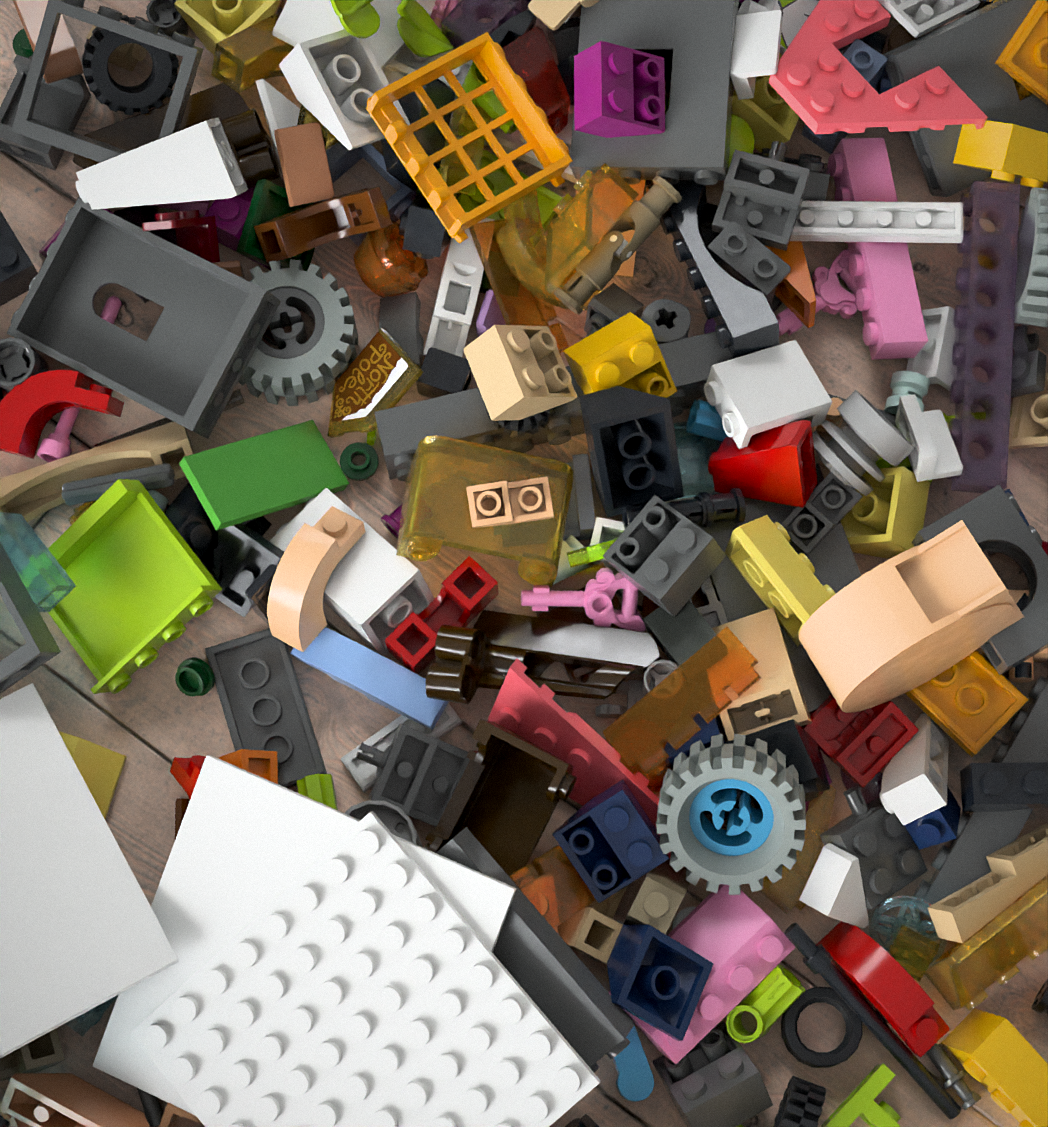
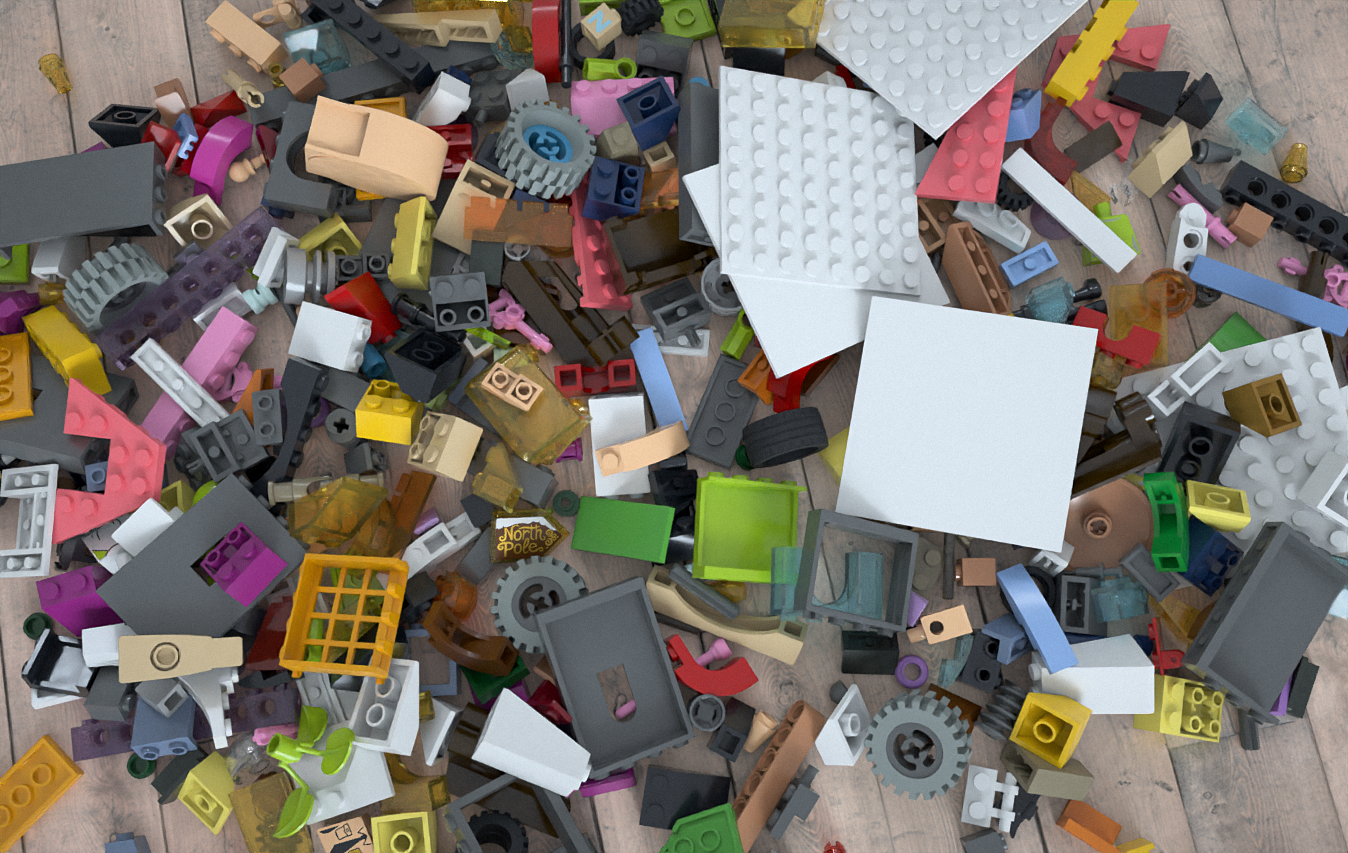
camera: 135 degrees left, 5 degrees up
(158, 719) = (785, 437): none -> black tyre
(304, 163) = (448, 690): nougat slope -> none
(428, 388) = (500, 479): none -> clear yellow slope
(822, 1051) = (601, 26): none -> tan brick

